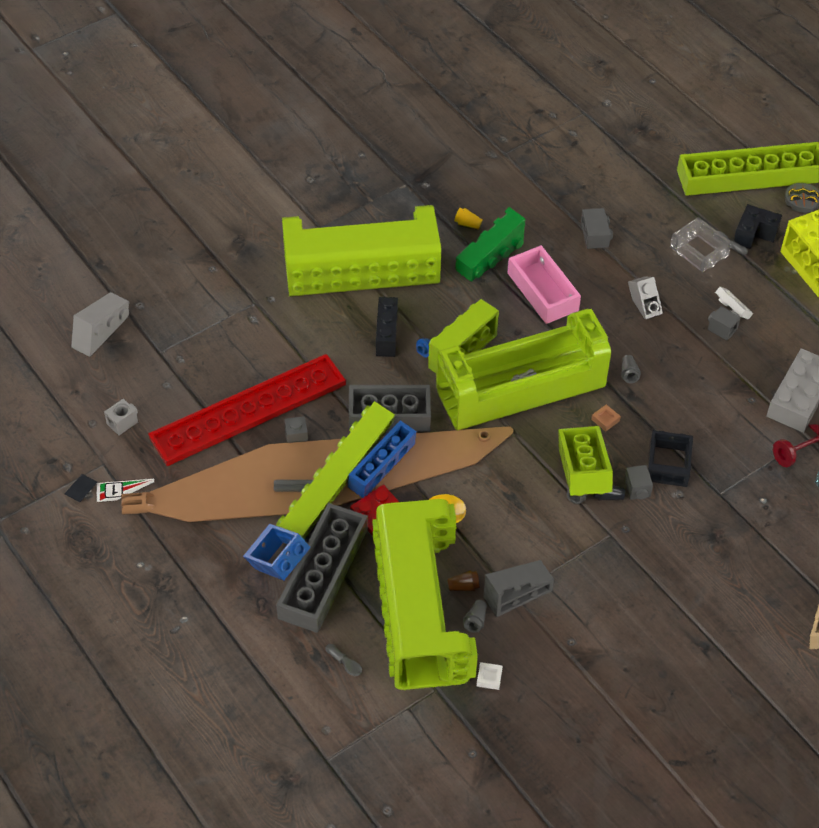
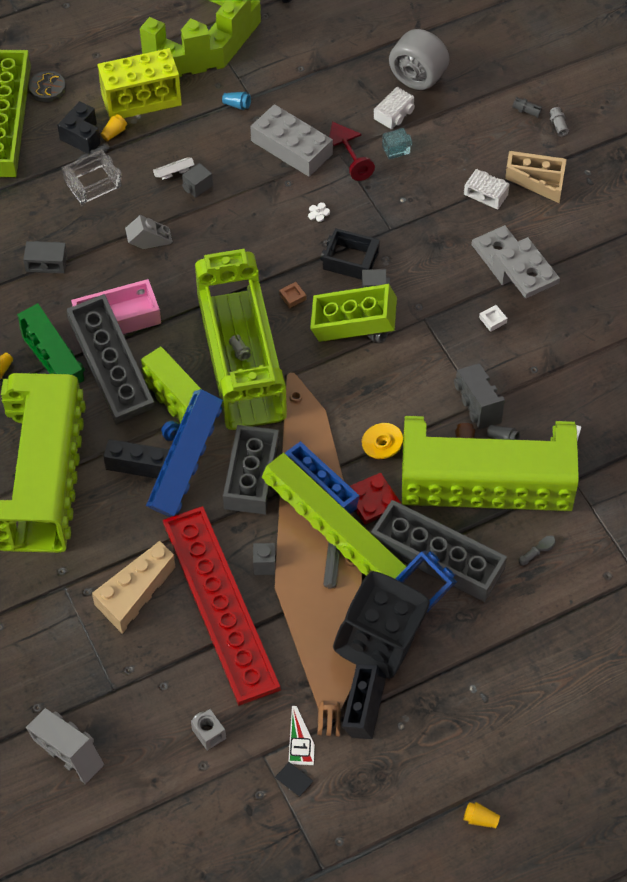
camera: 80 degrees left, 5 degrees up
(47, 632) = (480, 816): none -> yellow cone
(153, 524) = (364, 701): none -> black brick
(222, 517) = (381, 623): none -> black piece
(255, 343) = (134, 585): none -> tan wedge
(386, 348) = (184, 453): none -> blue brick
(482, 278) = (110, 359): none -> dark grey brick
(624, 593) = (493, 318): none -> white plate
(701, 603) = (515, 261): none -> light grey bracket
(720, 428) = (318, 212): none -> white plant
(768, 251) = (113, 127): none -> yellow cone
(798, 571) = (486, 189): none -> white brick

